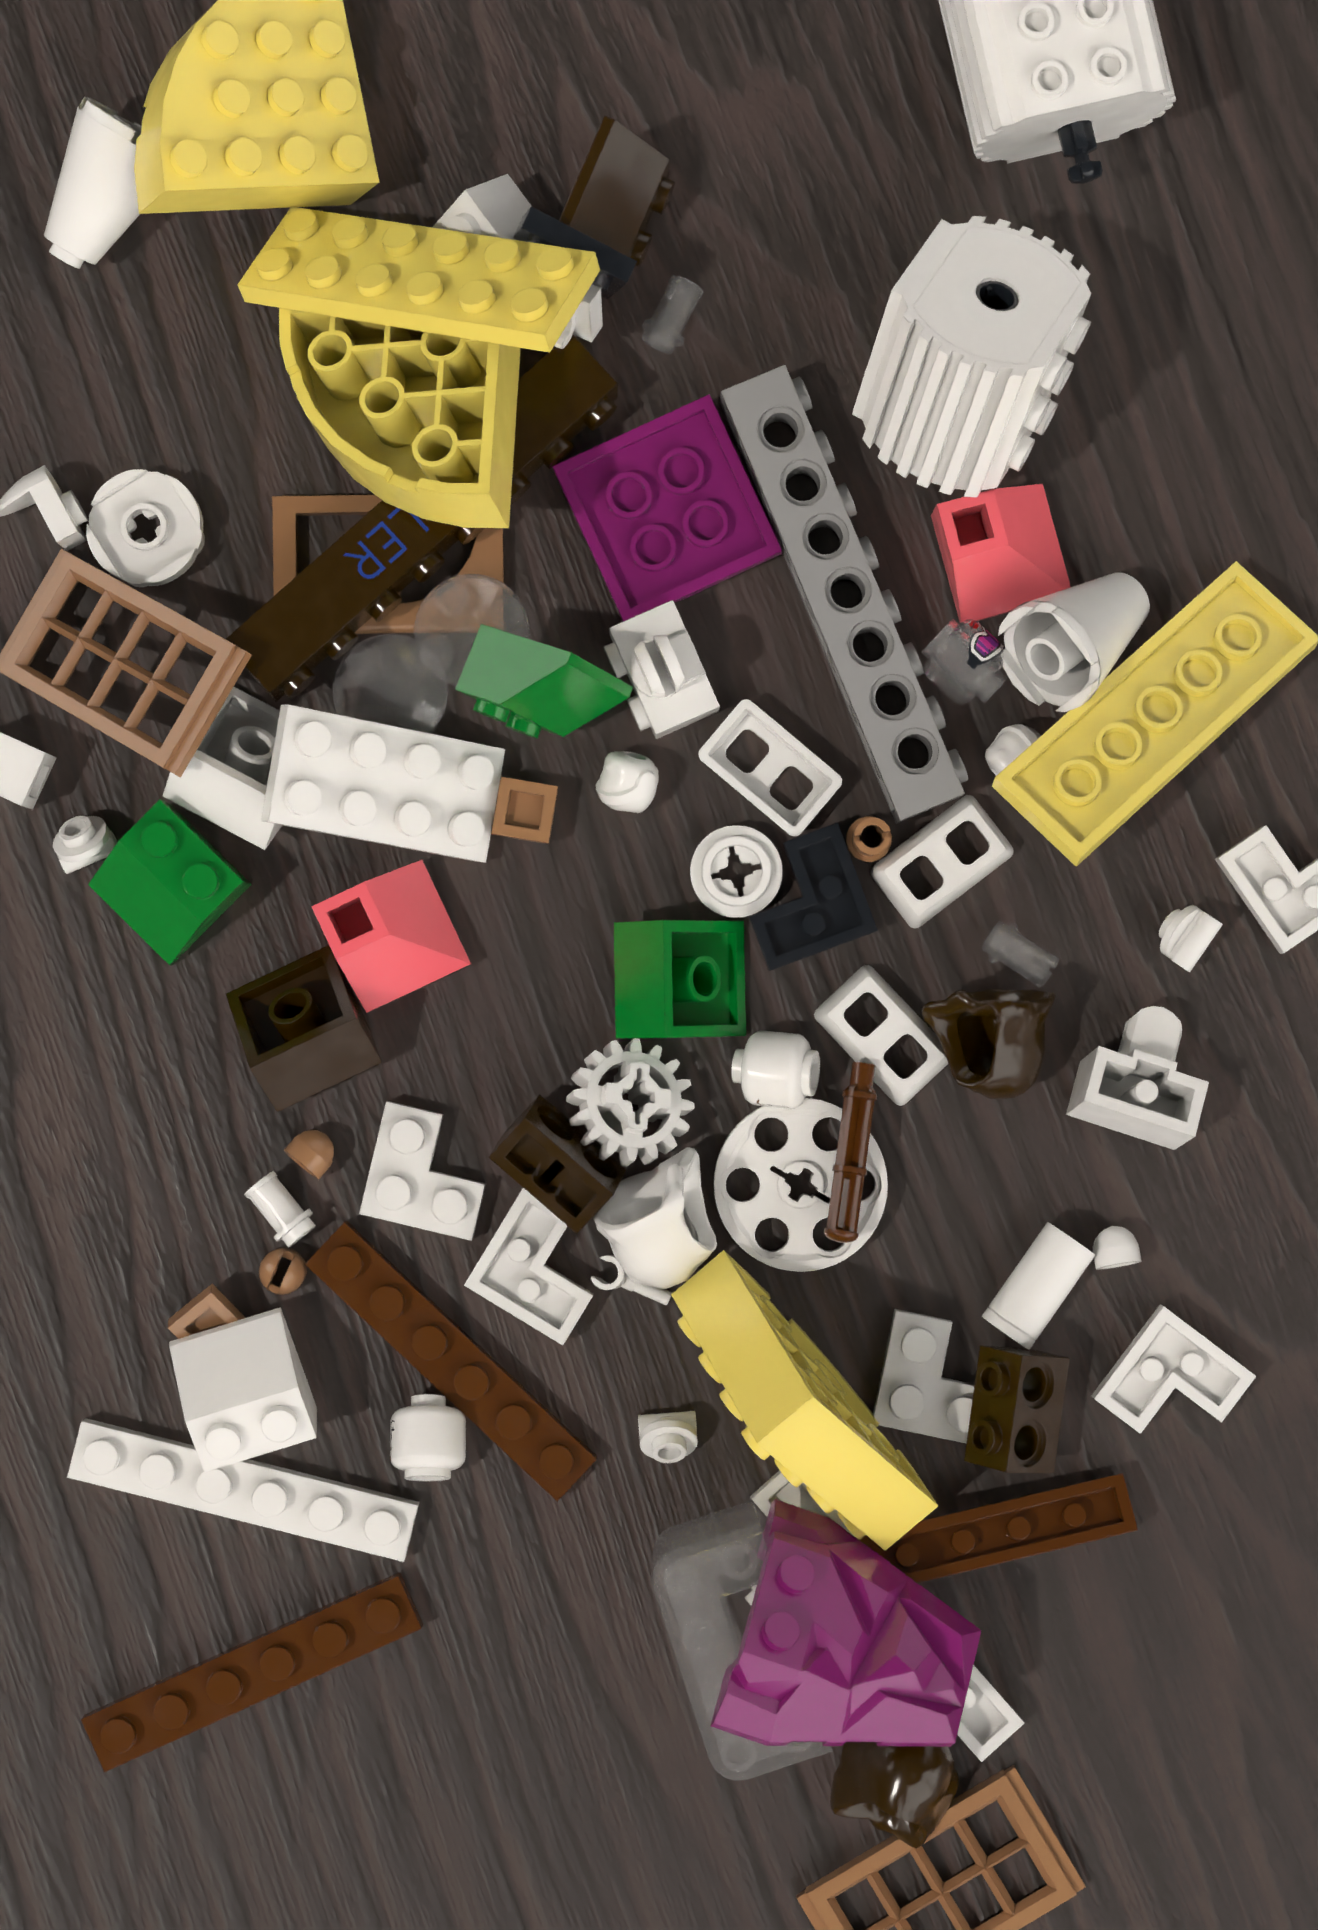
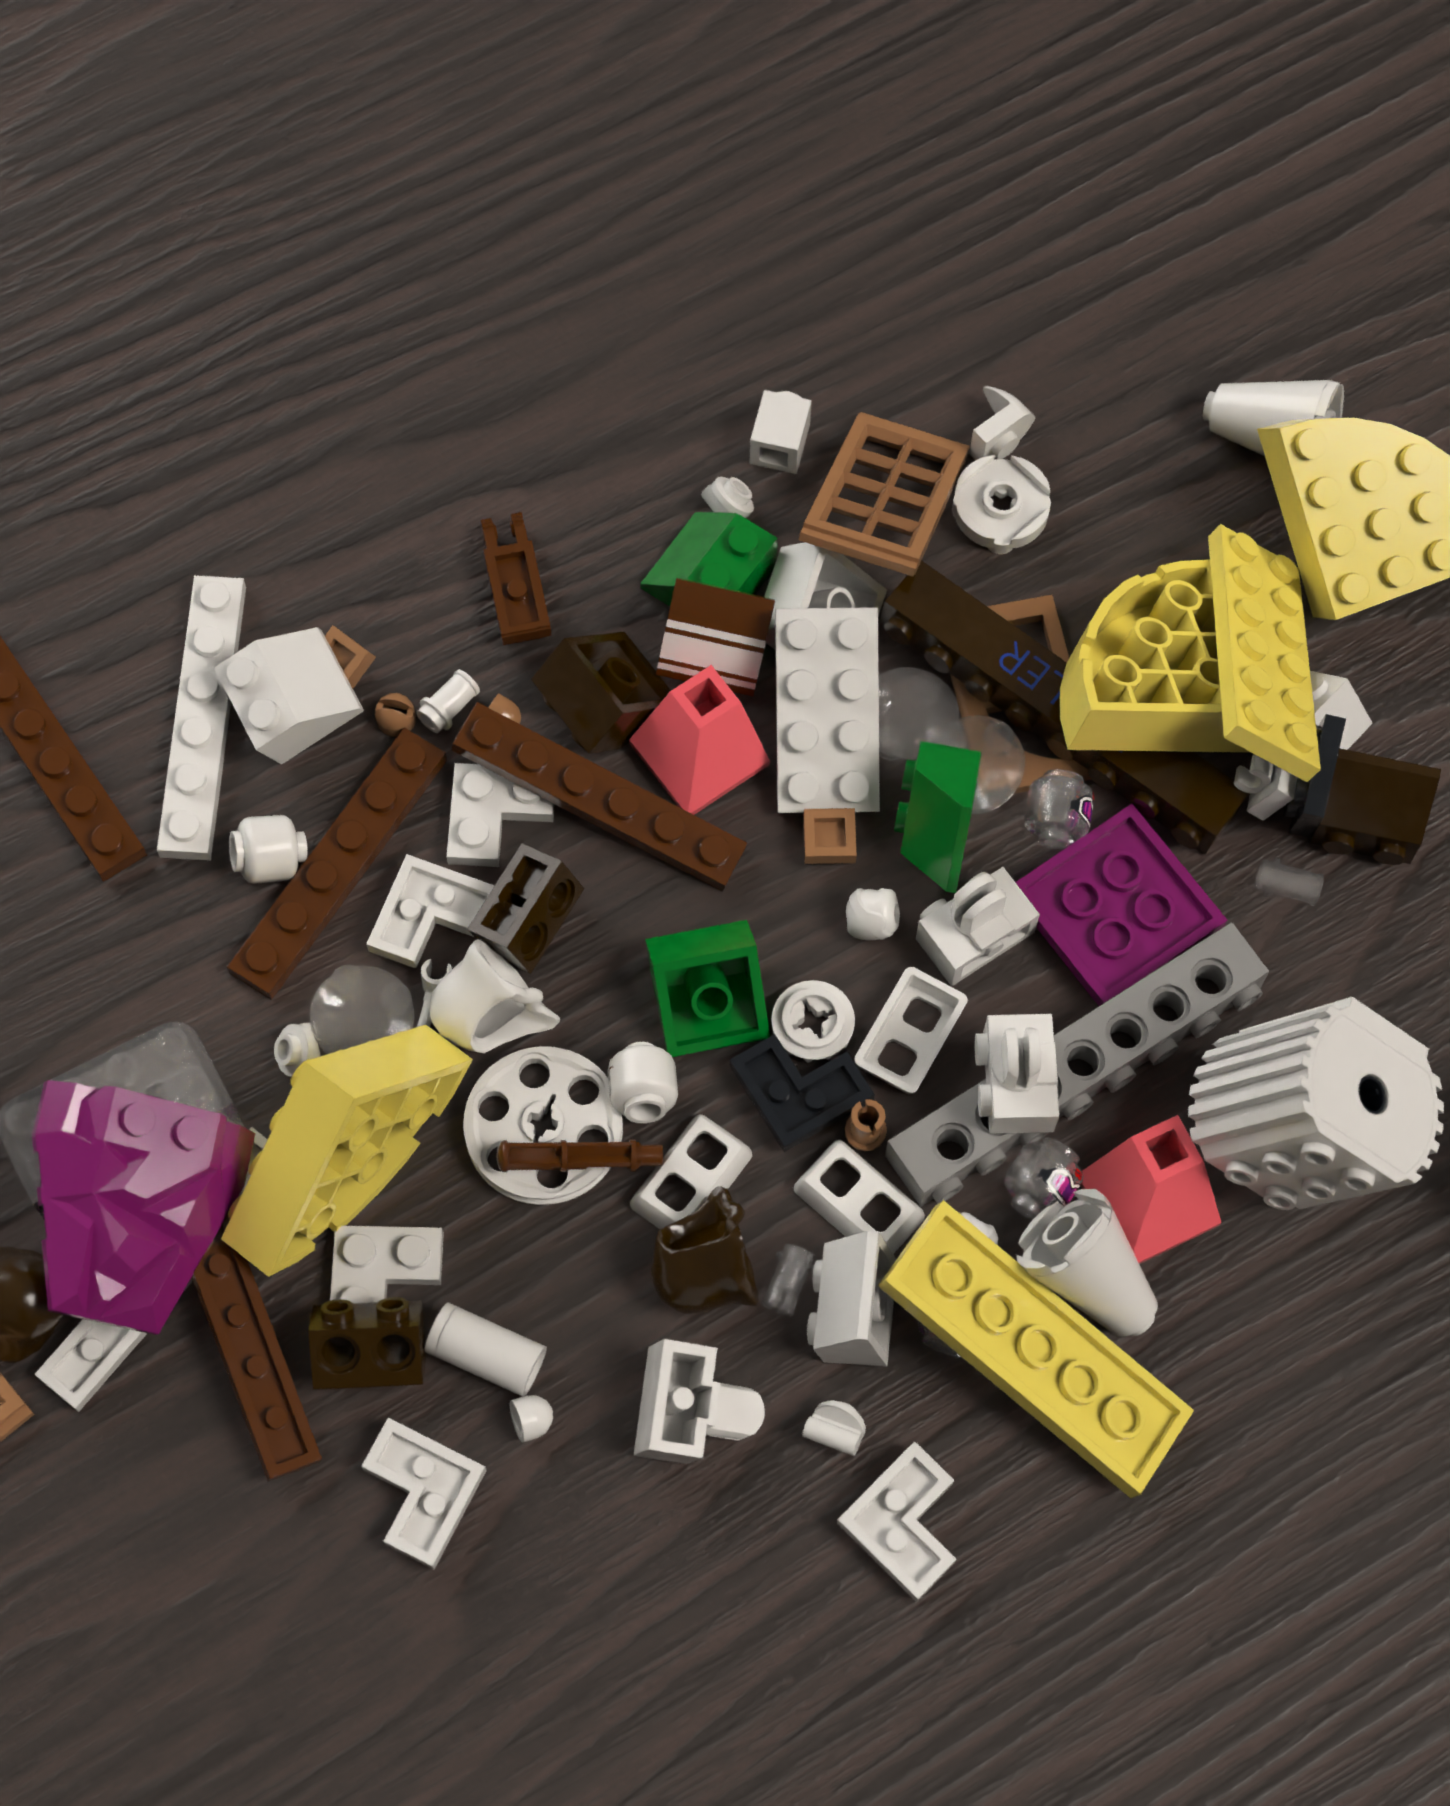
camera: 85 degrees right, 20 degrees down
(145, 1109) = (515, 584): none -> reddish brown hinge
(265, 893) = (715, 629): none -> slope
(434, 1060) = (599, 796): none -> reddish brown plate
(544, 549) = (1059, 808): none -> clear head
(639, 1361) = (359, 1007): none -> clear dish
(648, 1085) = (590, 982): white gear -> none
(862, 665) = (1019, 1073): none -> white brick
(1050, 890) = (852, 1310): none -> white slope

